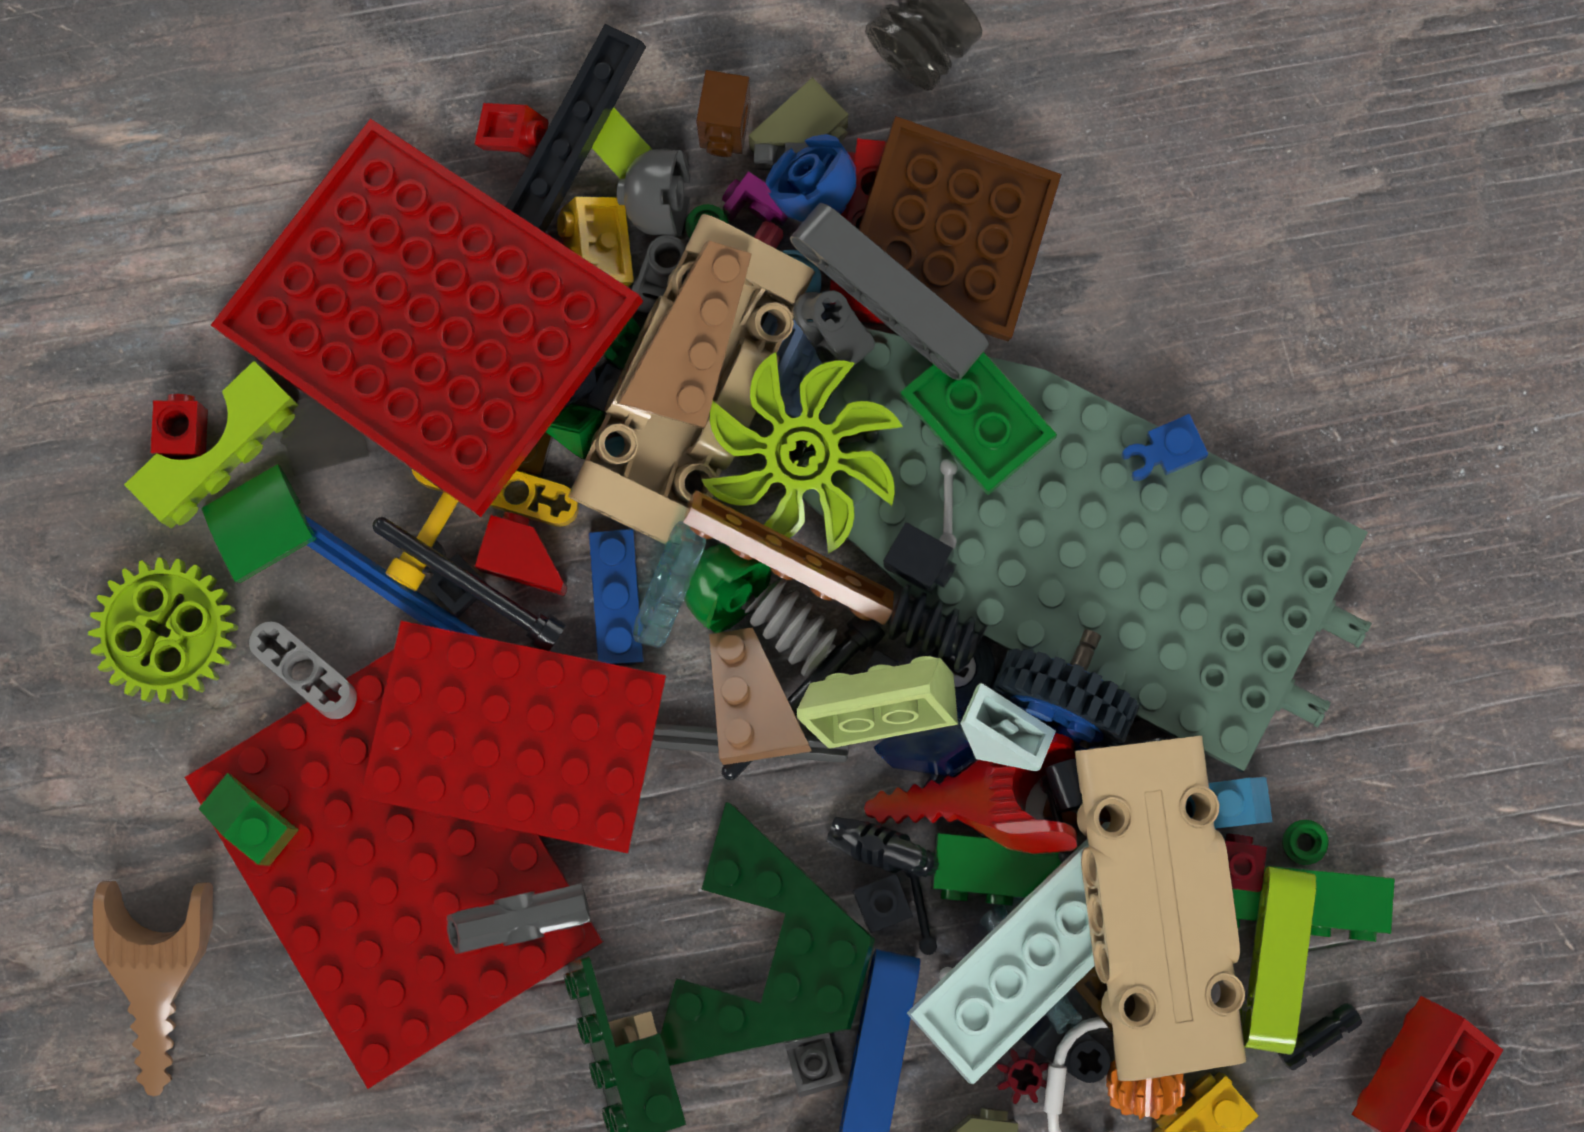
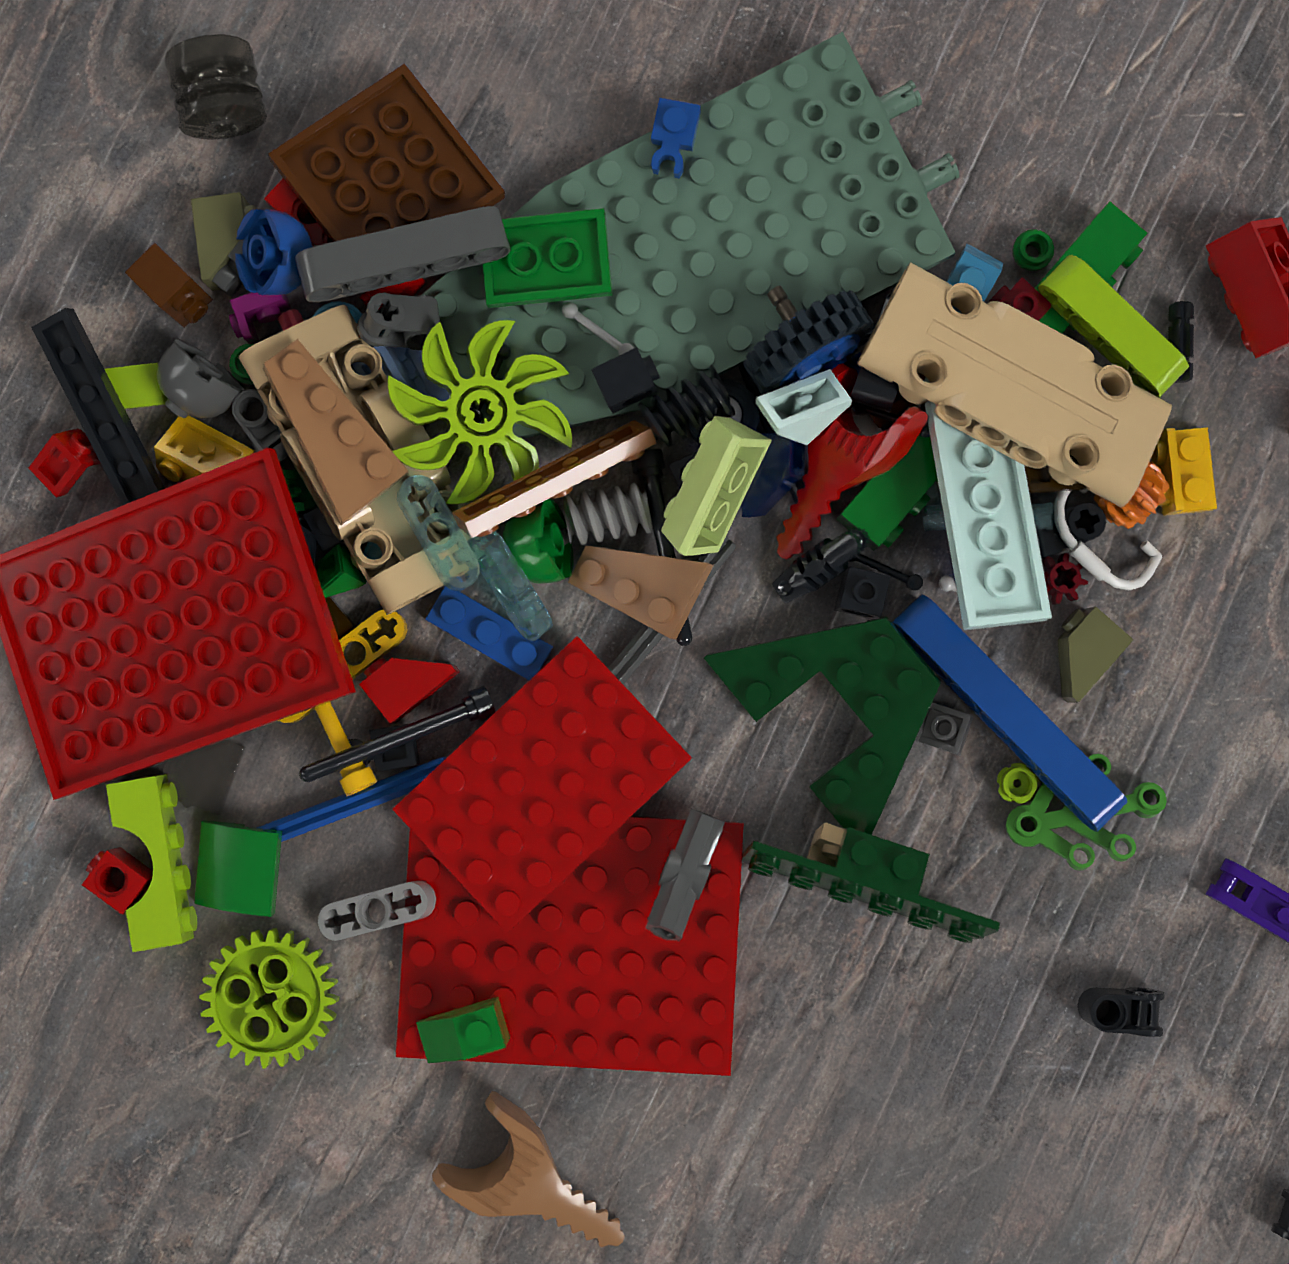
camera: 55 degrees left, 5 degrees up
(666, 526) = (414, 510): none -> clear light blue beam

